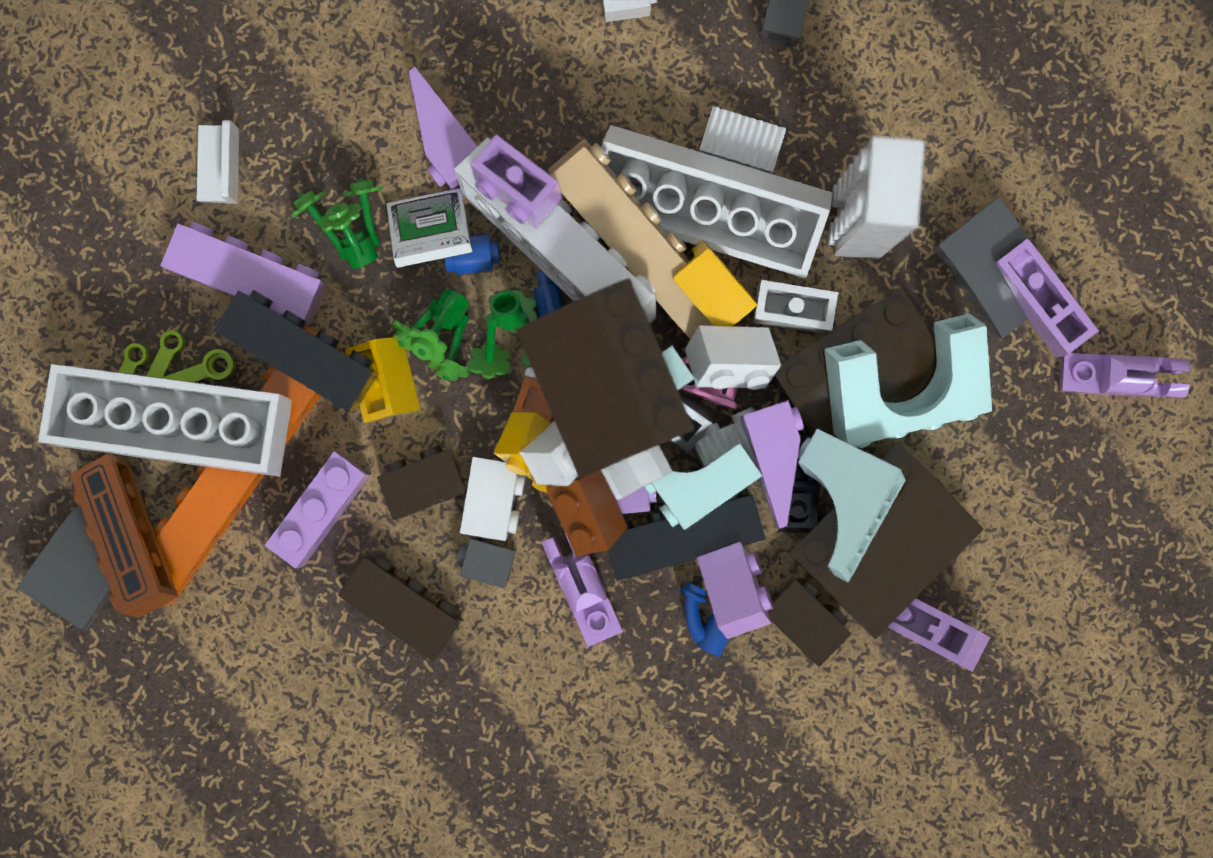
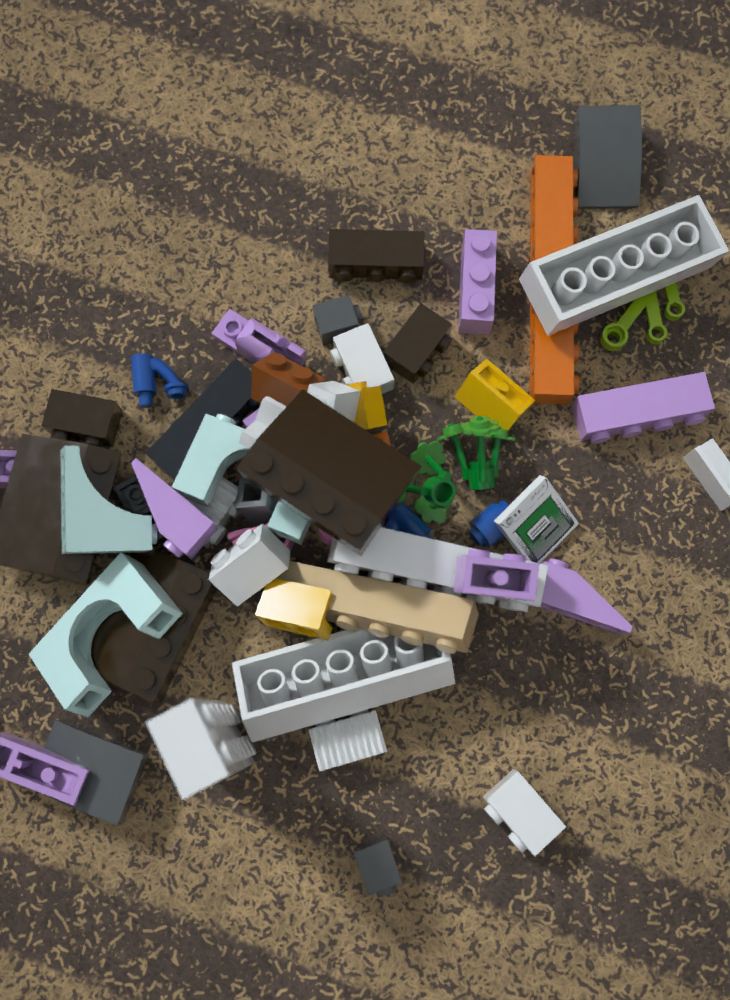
camera: 145 degrees right, 10 degrees down
(123, 536) = (594, 176): dark orange brick -> none
(296, 351) = (568, 368): black brick -> none
(356, 246) = (578, 477): plant -> none
(734, 589) = (145, 402): lavender brick -> none
(794, 307) = (227, 636): white brick -> none

